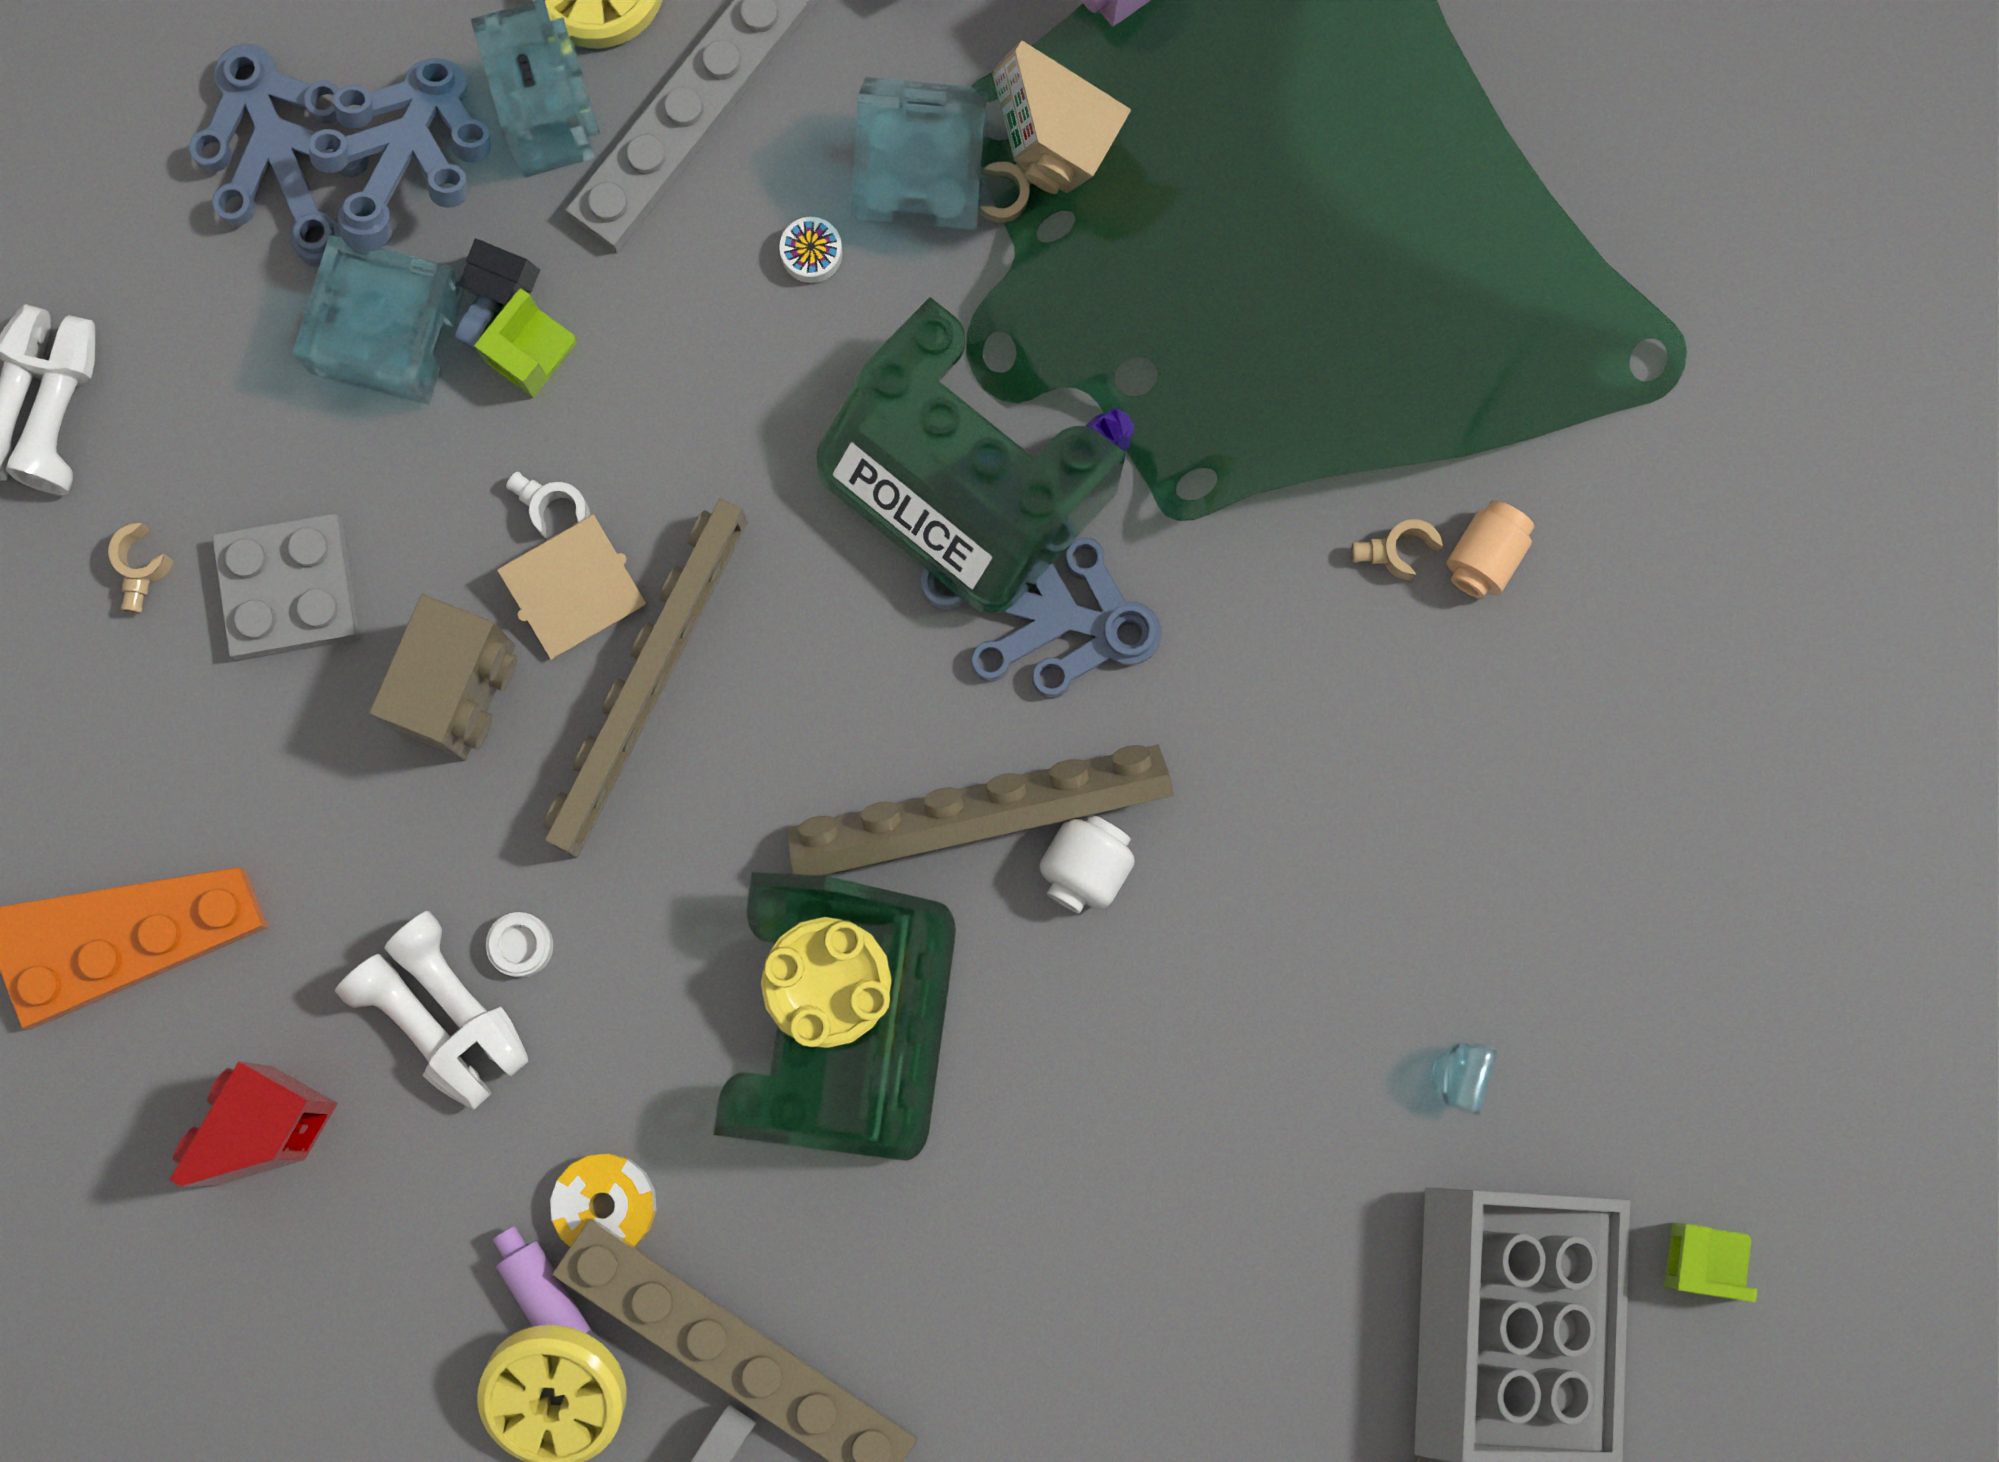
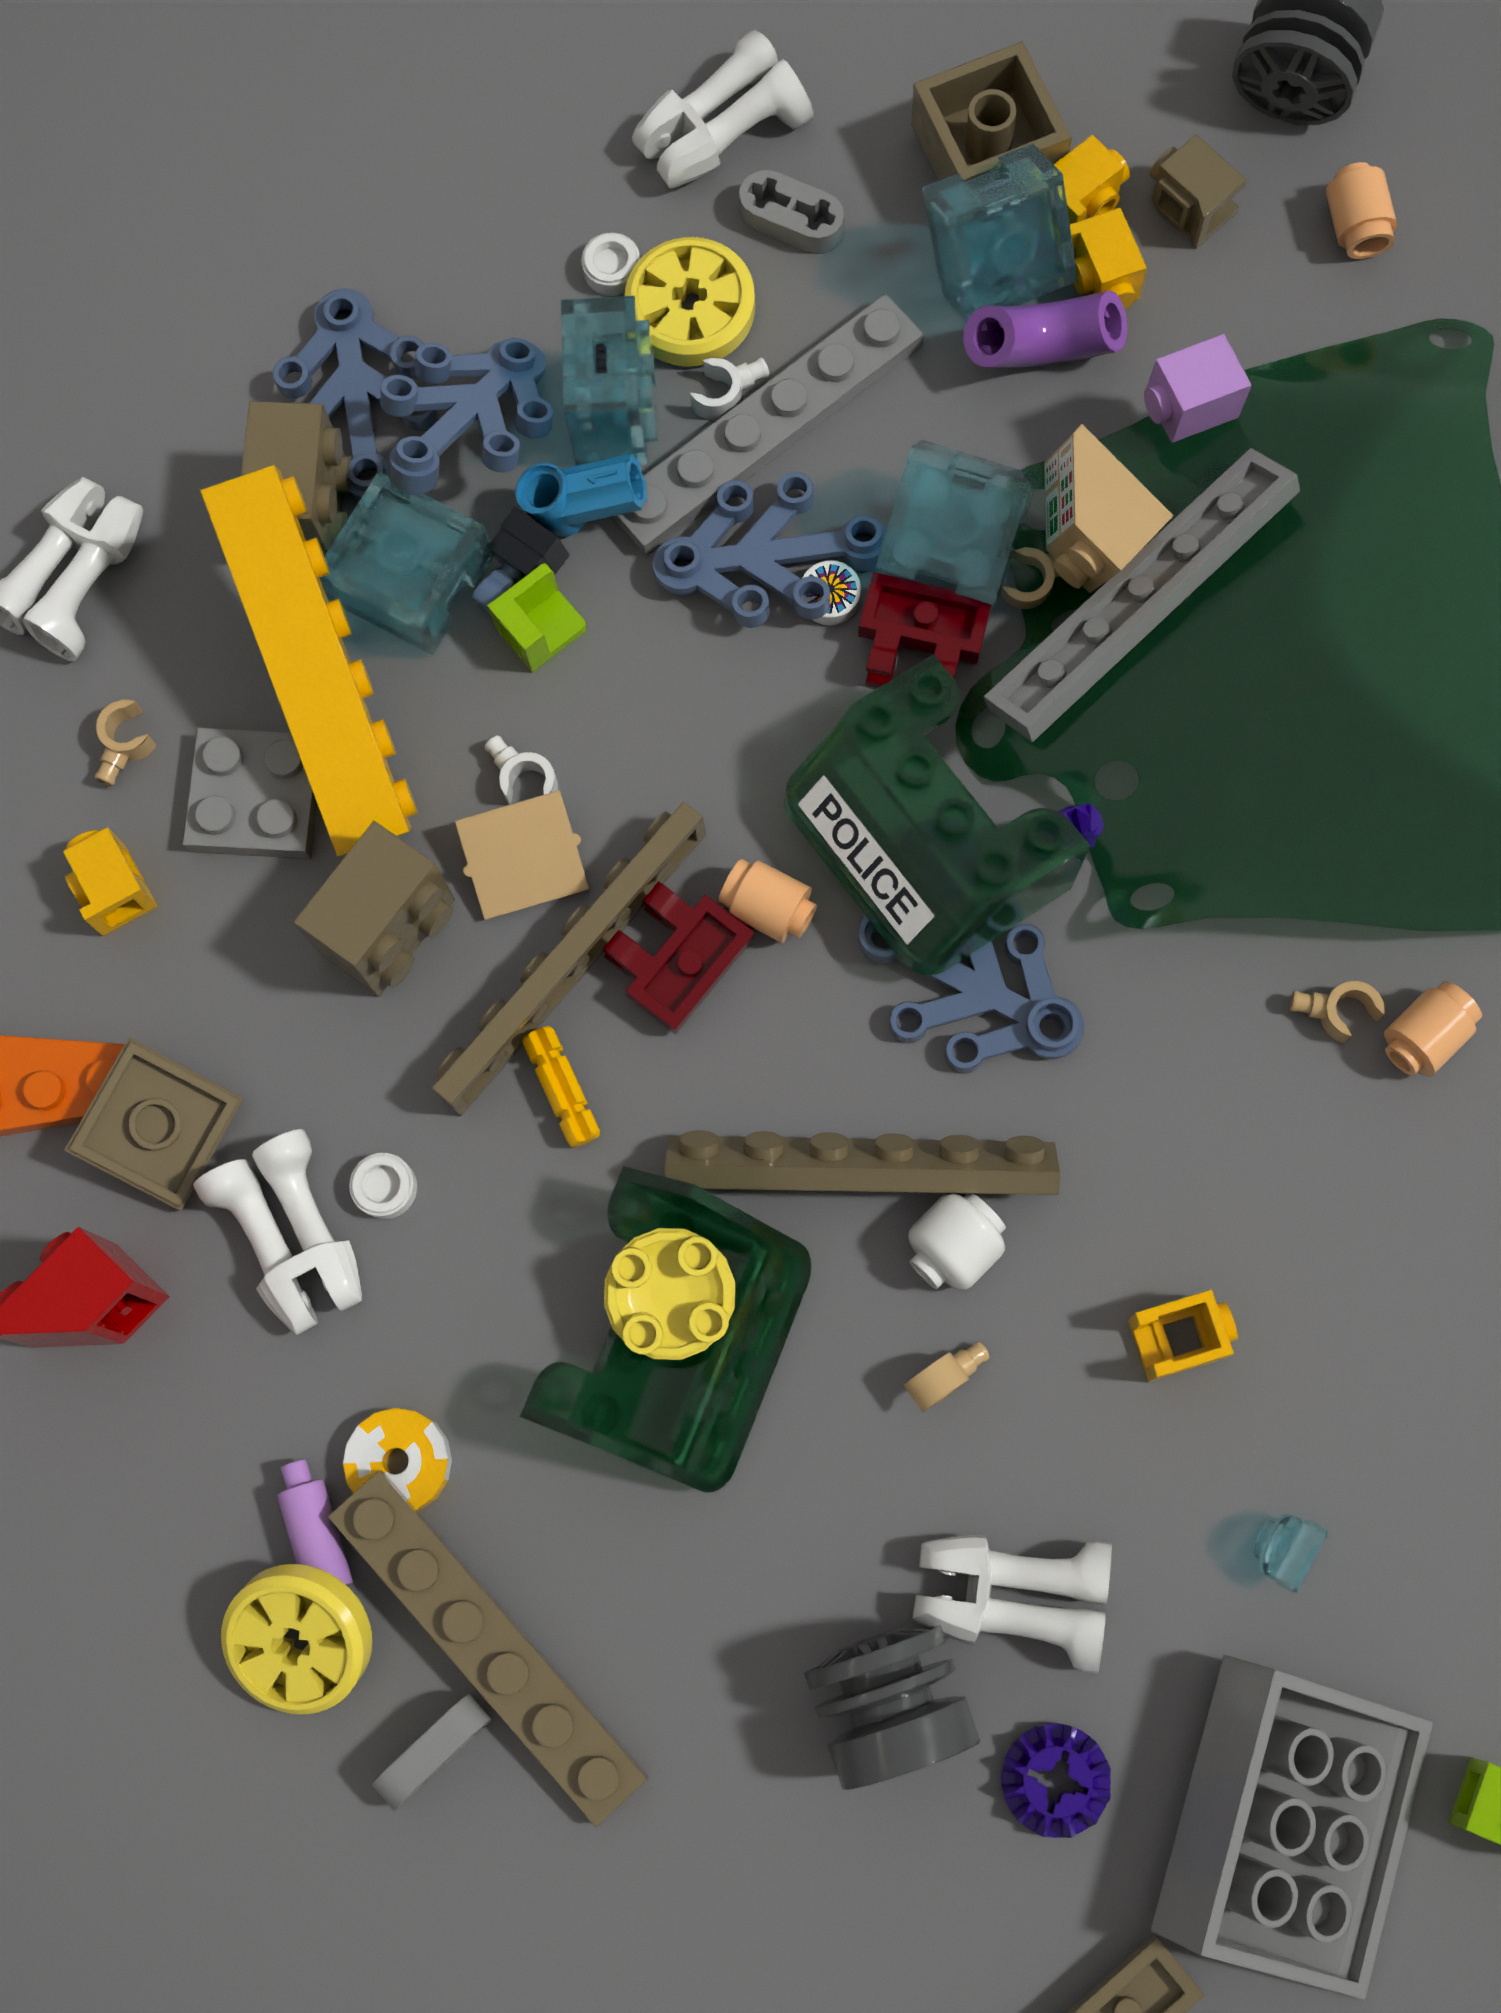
camera: 20 degrees right, 5 degrees down
(162, 710) = (106, 881): none -> yellow brick
(245, 266) = (305, 446): none -> dark tan brick
(278, 940) = (154, 1124): none -> dark tan tile
(310, 444) = (306, 655): none -> yellow brick
(541, 207) = (582, 492): none -> dark azure piece
(665, 49) = (736, 377): none -> white piece
(668, 806) = (561, 1086): none -> yellow axle
(732, 226) = (762, 554): none -> sand blue plant
(764, 653) = (687, 964): none -> dark red plate
(825, 575) = (768, 900): none -> light nougat brick
(907, 257) = (920, 619): none -> dark red plate
(1107, 993) = (945, 1375): none -> tan piece
(1120, 190) = (1142, 594): none -> light grey plate
(1129, 1314) = (892, 1707): none -> dark grey wheel
(1275, 1364) = (1027, 1797): none -> dark purple gear
(1280, 1200) = (1080, 1577): none -> white piece
(1347, 883) = (1213, 1325): none -> yellow window

